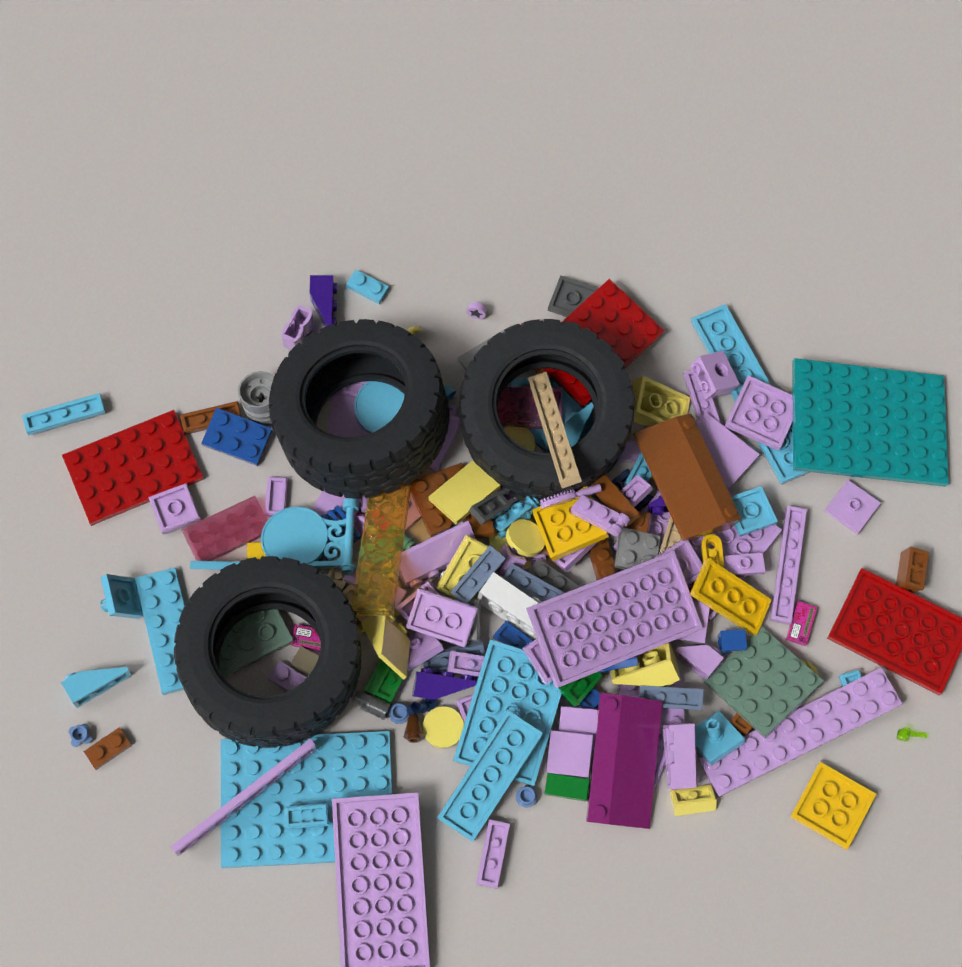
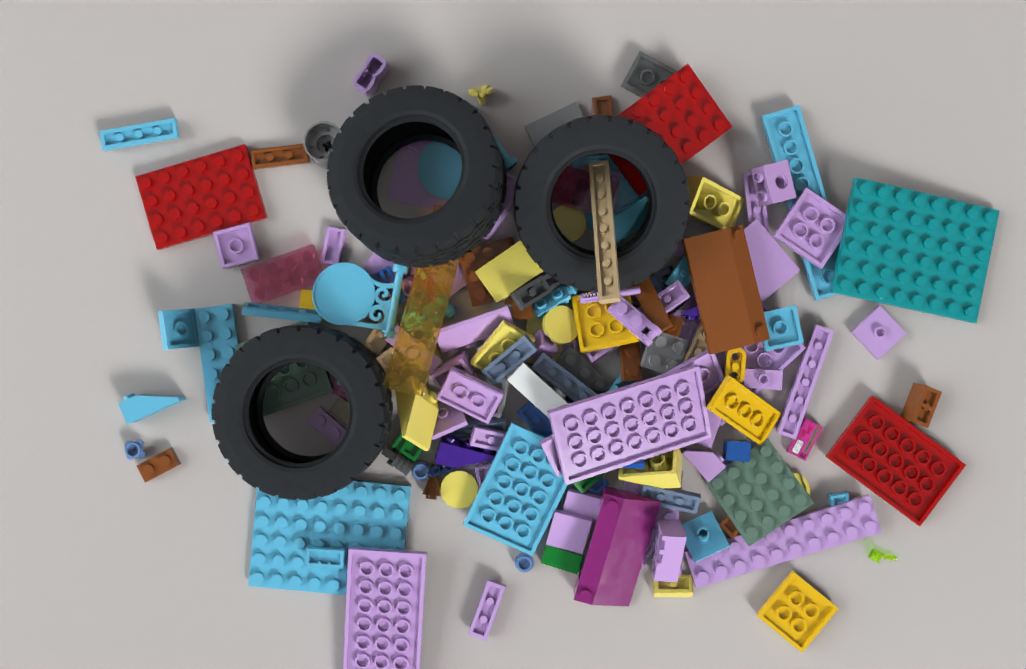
camera: 10 degrees right, 20 degrees up
(236, 436) = (300, 180): blue plate -> none
(244, 797) = (272, 533): lavender tile -> none
(322, 297) = (400, 39): dark purple slope -> none
(367, 286) = (446, 36): medium azure plate -> none
(476, 310) = (550, 78): lavender tile -> none
(489, 775) = (494, 544): medium azure plate -> none

